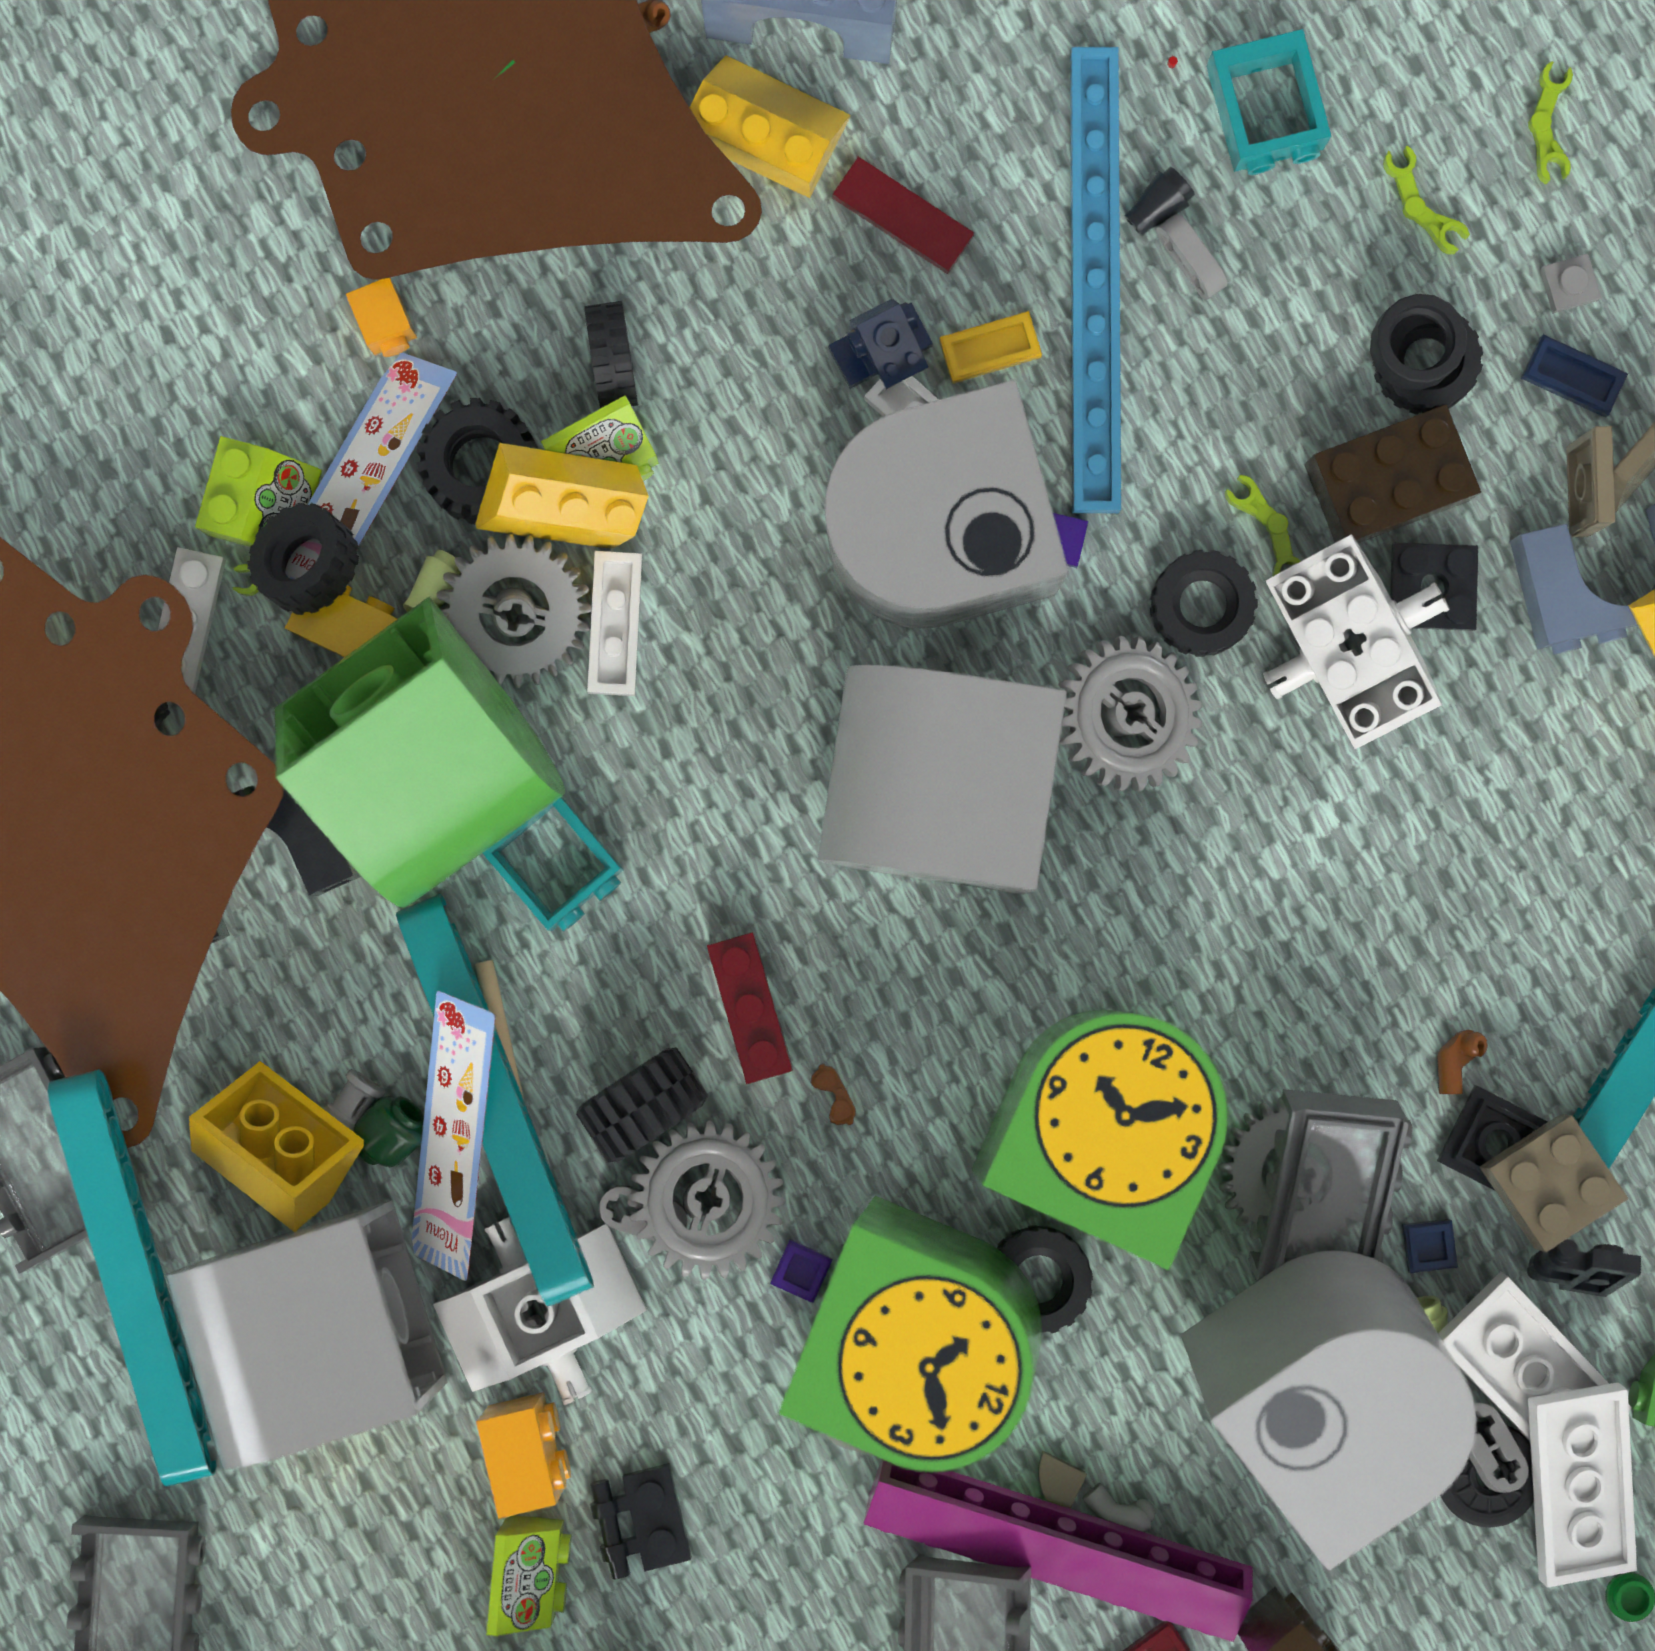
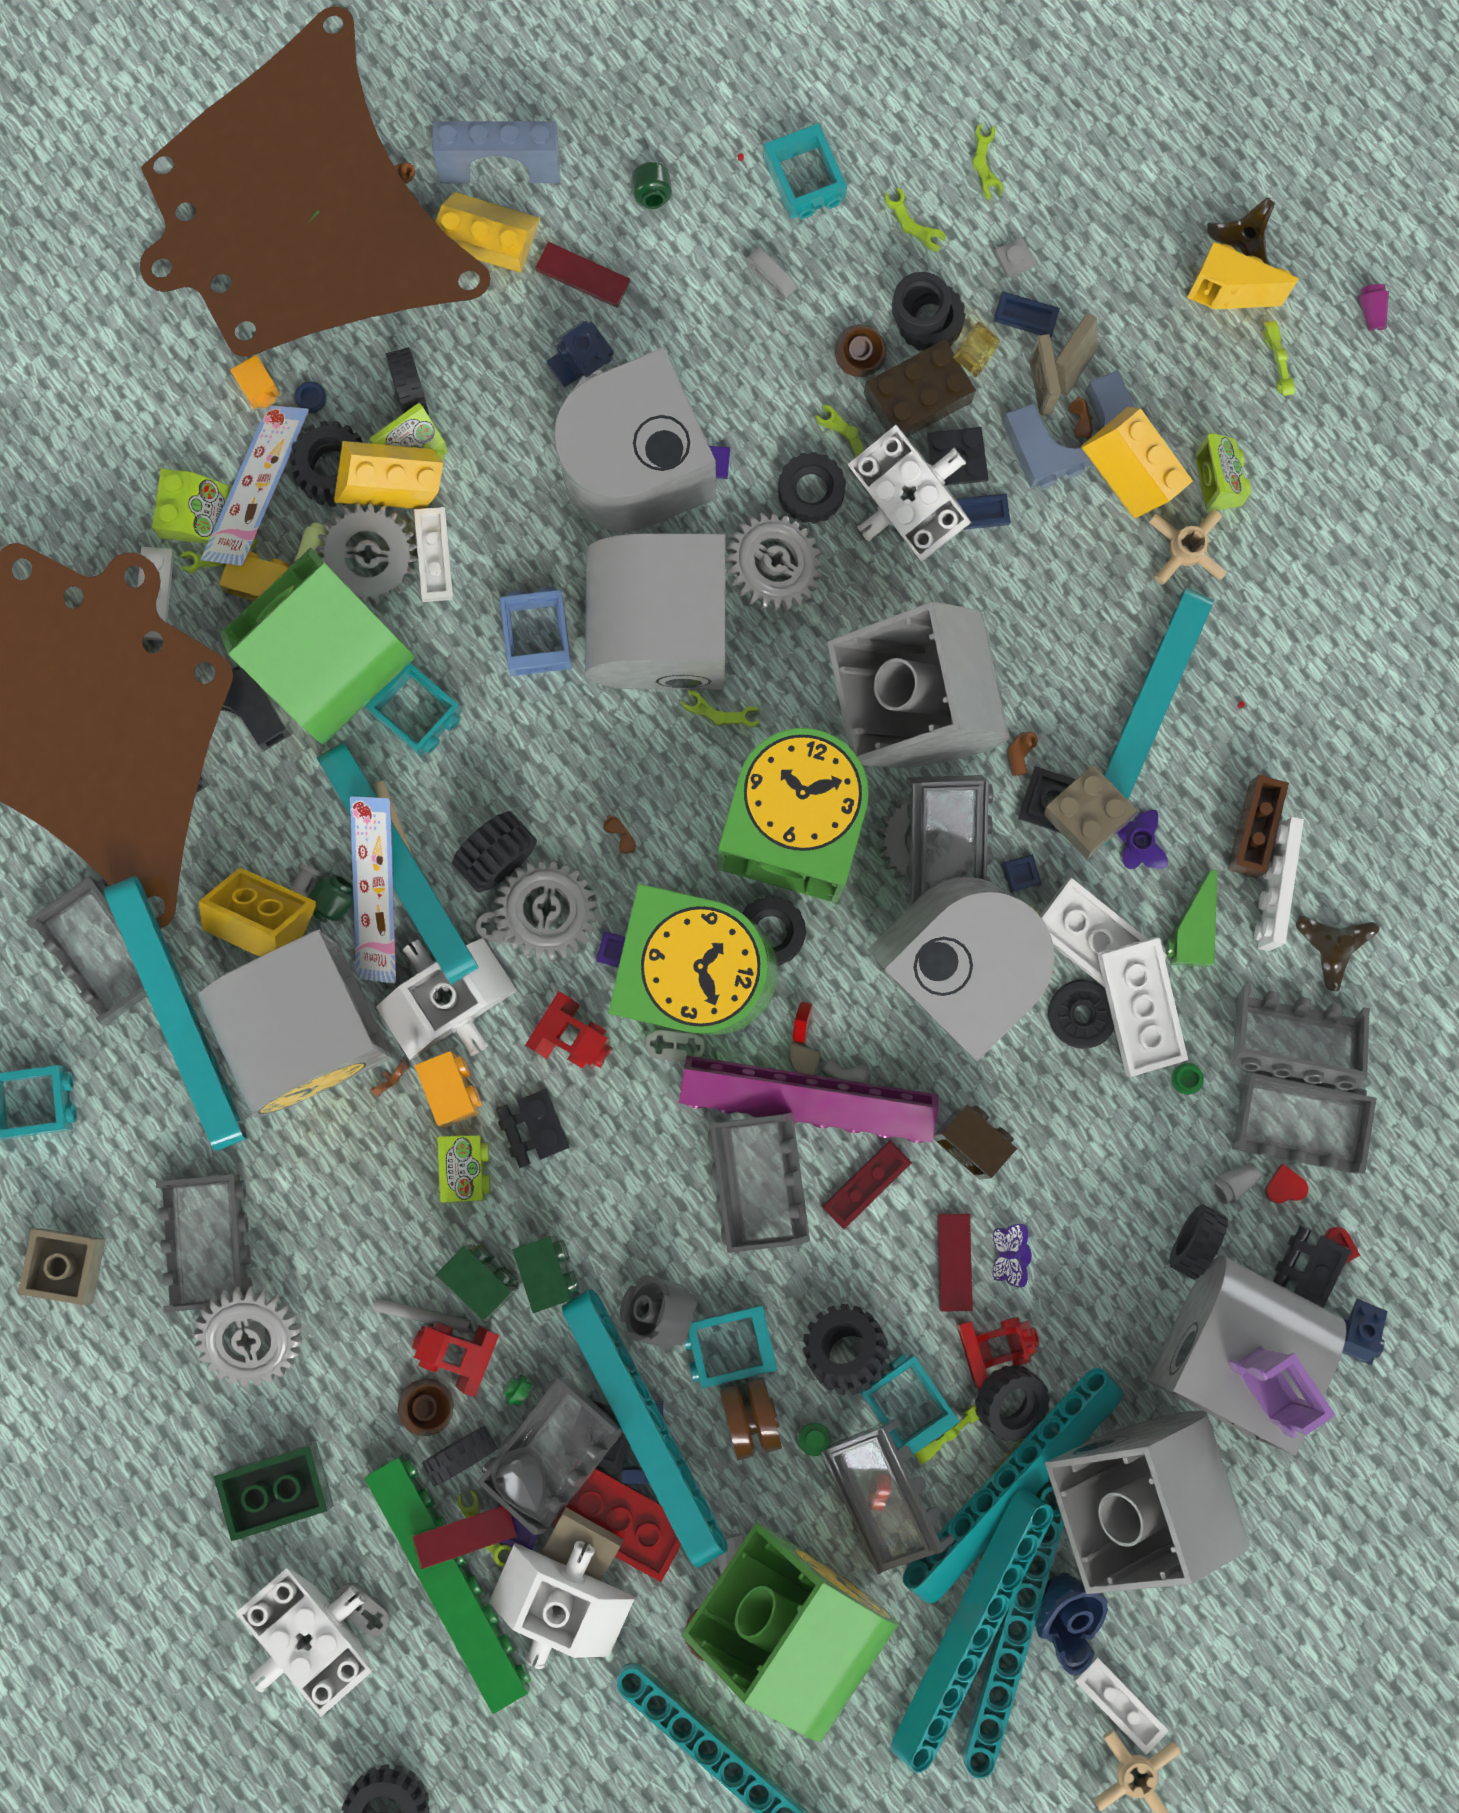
camera: 15 degrees left, 5 degrees down
(326, 577) = (212, 524): black tyre -> none
(442, 1415) = (391, 1079): none -> dark orange piece
(462, 349) = (310, 396): none -> dark blue tile
(733, 715) = (542, 661): none -> medium blue window
(744, 1420) = (590, 1044): none -> red tile
(750, 1008) = (556, 783): dark red arch -> none
(990, 347) = (662, 337): yellow tile -> none
(1008, 937) = (719, 717): none -> lime piece
(1029, 89) = (651, 185): none -> dark green head
(1066, 1424) = (802, 1022): none -> red tile
(1095, 280) = (712, 298): dark azure plate -> none
(1161, 200) = (747, 239): black cone -> none
(1304, 383) = (853, 345): none -> reddish brown hat
(1323, 962) = (919, 688): none -> light grey brick
(1464, 675) = (986, 510): none -> dark blue tile
(1491, 424) = (976, 349): none -> clear yellow tile
(1504, 1446) = (1086, 989): light grey beam -> none
(1591, 1272) = (1120, 870): black plate -> none
(1623, 1223) = (1141, 842): none -> dark purple animal
(1635, 567) = (1084, 426): none -> dark orange piece

